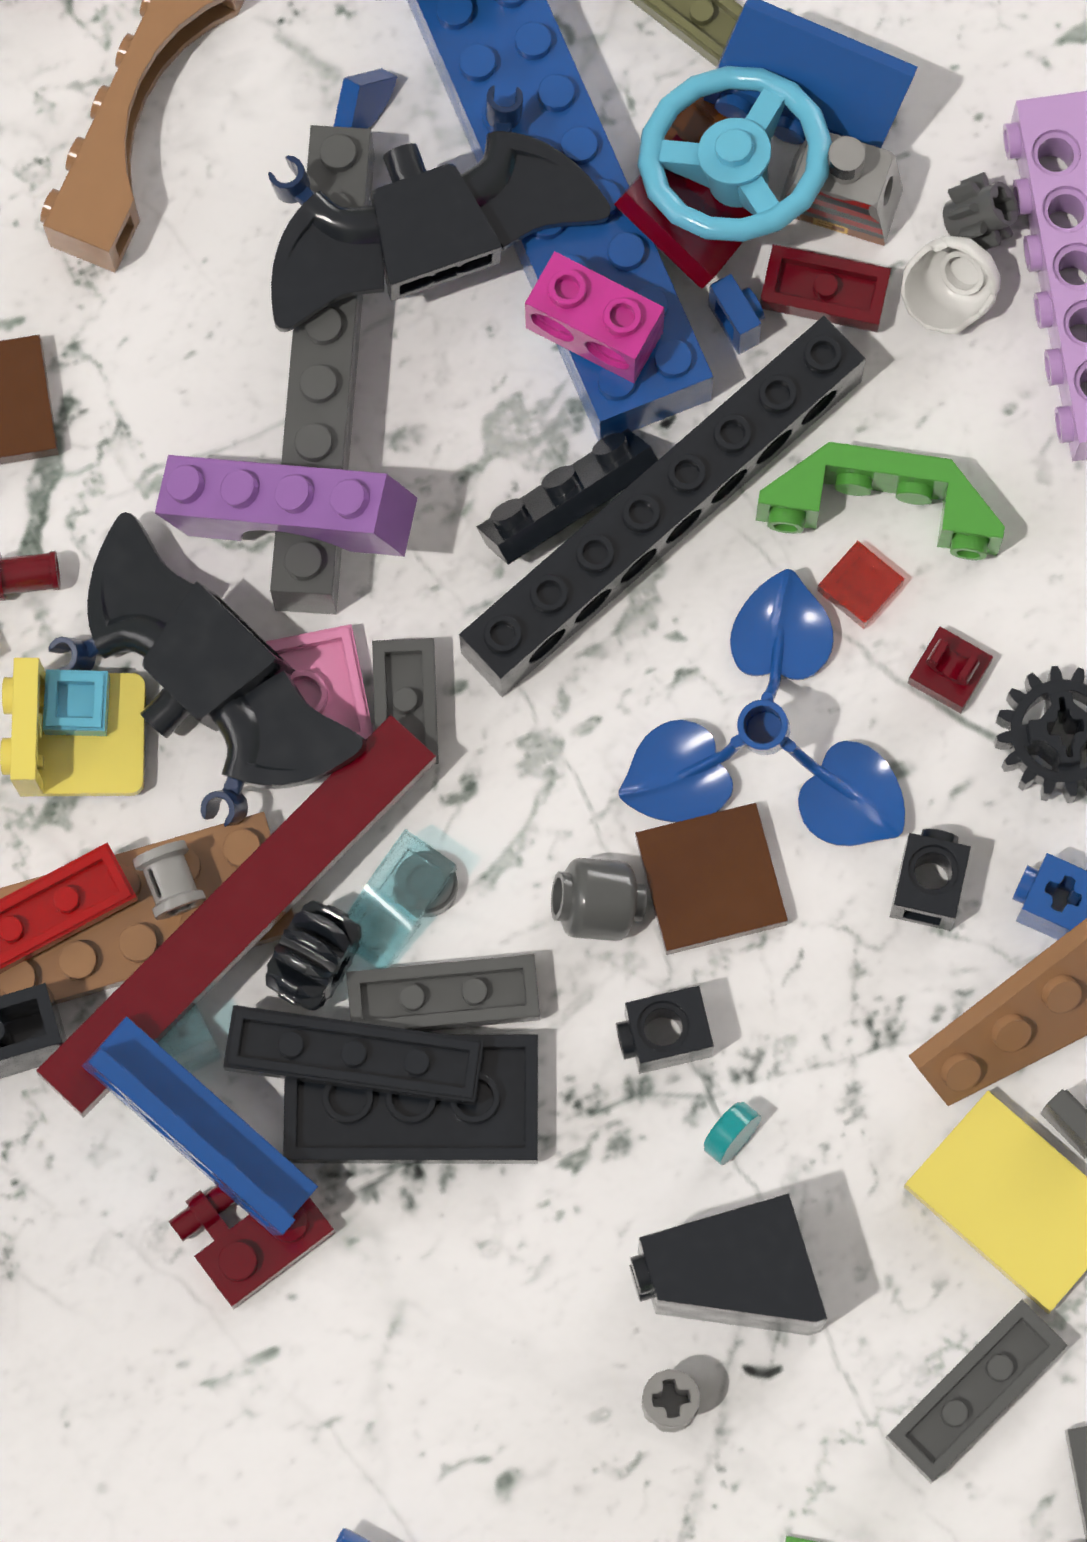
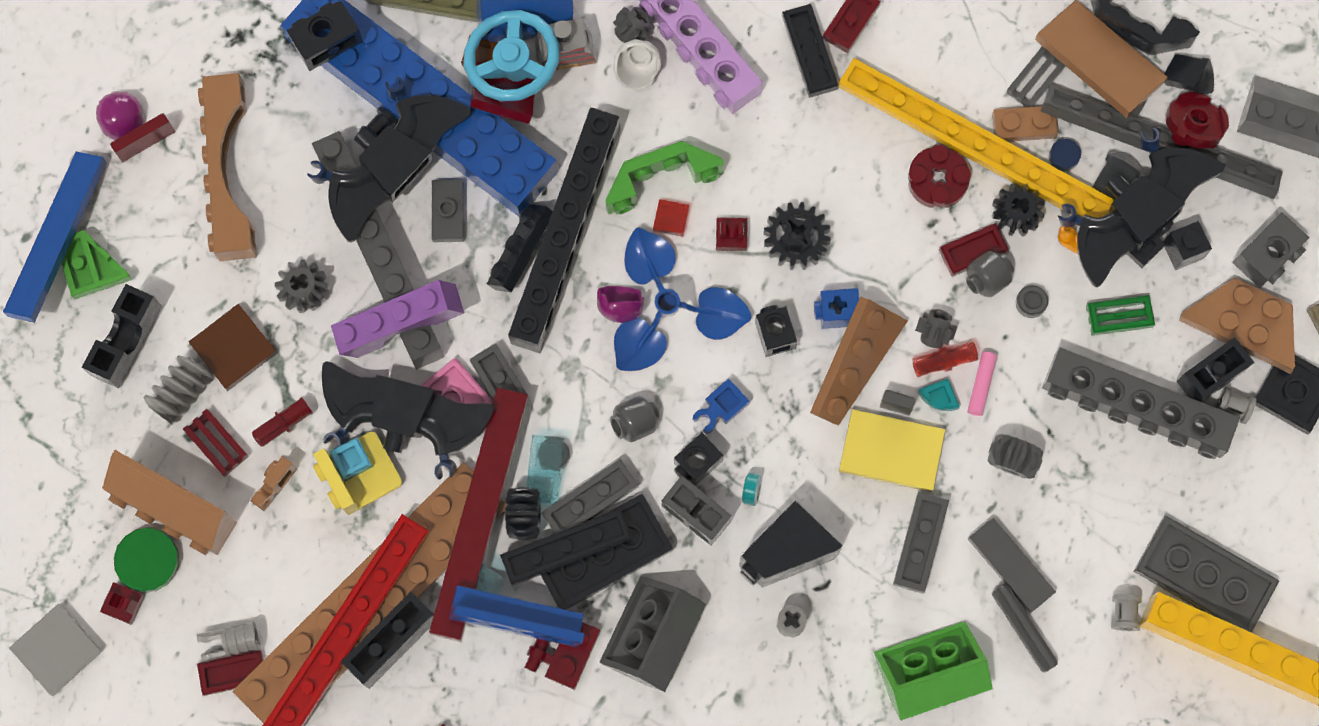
camera: 30 degrees left, 0 degrees up
(169, 879) = (440, 514): light grey bush -> none
(176, 346) = (301, 296): none -> dark grey gear
(364, 98) = (326, 119): blue tile -> none
(420, 1286) = (653, 633): none -> dark grey slope
(455, 149) = (381, 121): none -> black bush
(480, 366) = (447, 211): none -> dark grey plate
(594, 317) = (490, 161): dark pink brick -> none
(613, 1116) = (696, 510): none -> dark grey brick
(685, 684) = (619, 303): none -> magenta hair
(711, 878) = (678, 382): reddish brown tile -> none
(736, 312) = (549, 126): blue plate -> none
(770, 957) = (724, 403): none -> blue plate
(826, 286) = (582, 94): dark red plate -> none

